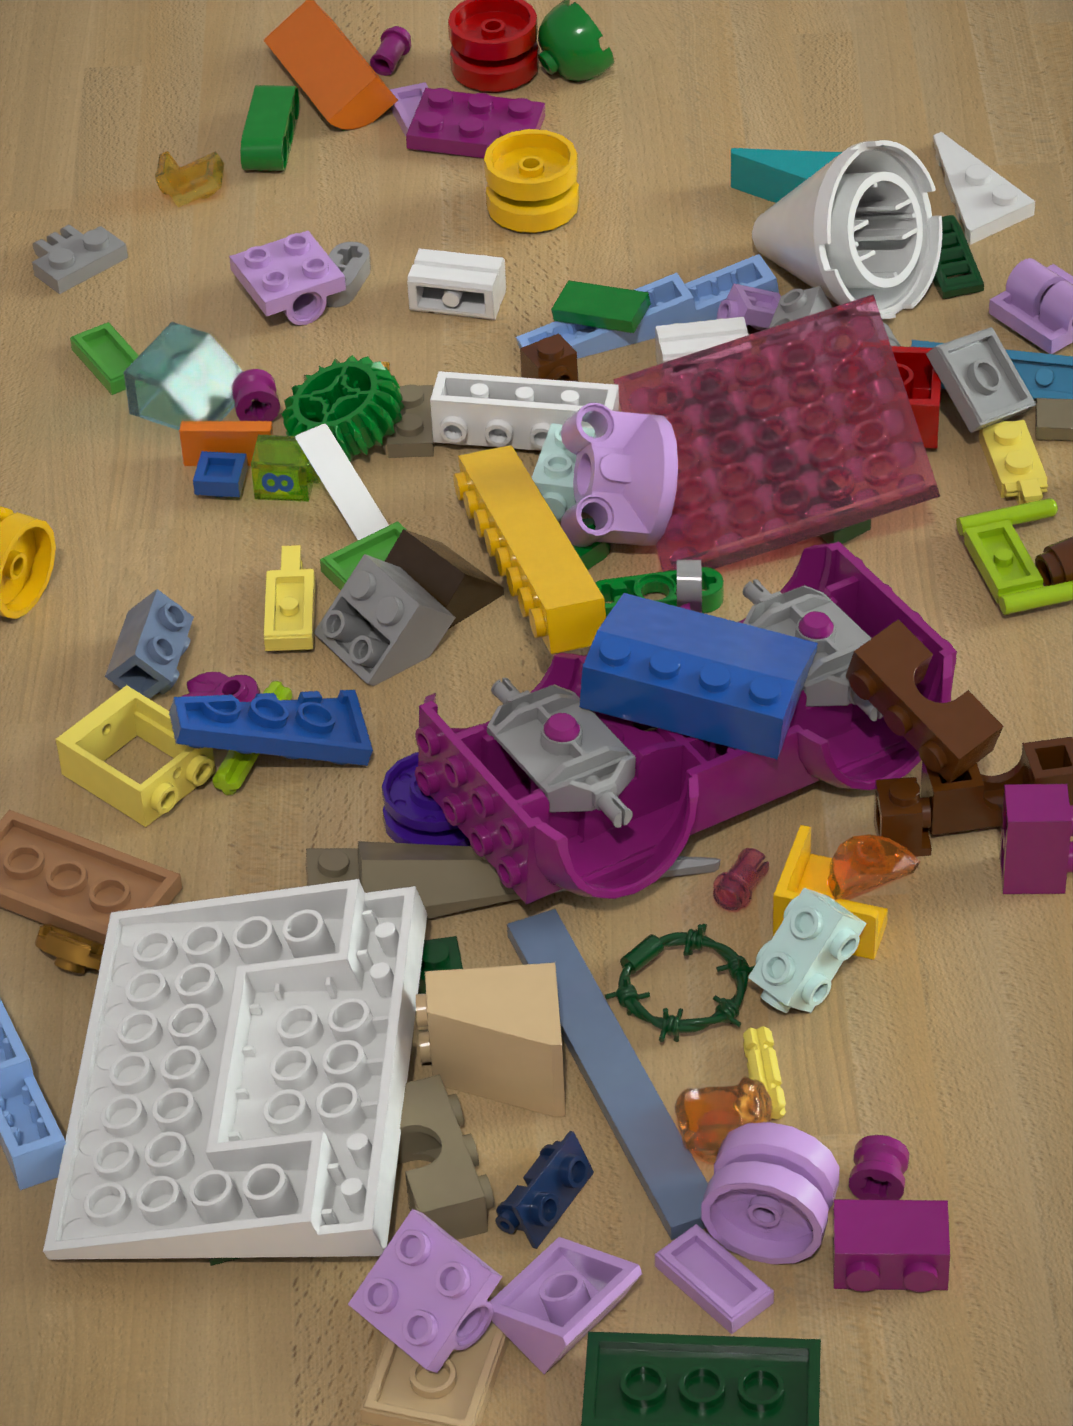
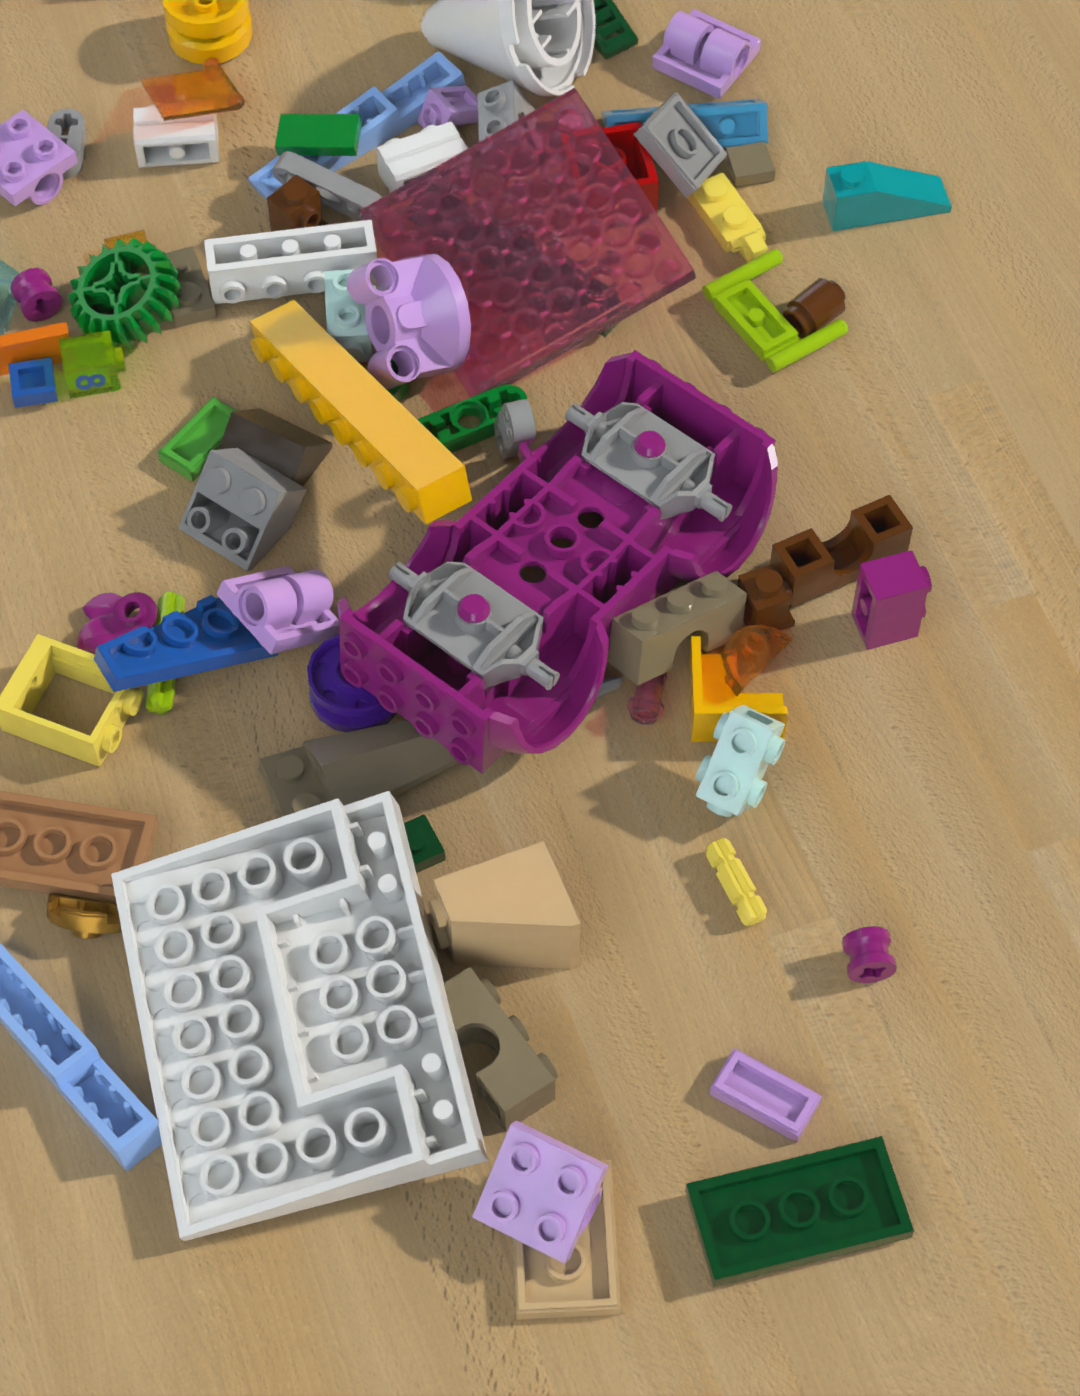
camera: 20 degrees left, 15 degrees up
(150, 646) = (39, 584): sand blue brick -> none
(289, 604) = (148, 506): light yellow hinge -> none
(341, 481) = (151, 369): white sticker -> none
(377, 713) = (283, 607): none -> lavender plate
(488, 248) = (193, 92): none -> clear orange piece
(550, 1189) = (599, 1029): dark blue hinge -> none
(561, 1299) = (657, 1160): lavender slope -> none
(594, 355) = (334, 188): none -> light grey beam
(616, 1076) = (613, 918): sand blue tile -> none
(671, 1024) = (631, 765): dark green piece -> none
(696, 674) = (571, 520): blue slope -> none
(712, 1112) = (726, 942): clear orange hair -> none
(754, 810) = (649, 635): none -> dark tan arch
(770, 1193) = (797, 1010): lavender wheel -> none
(891, 1245) = (905, 1026): magenta brick -> none
(947, 734) = (734, 486): reddish brown arch -> none

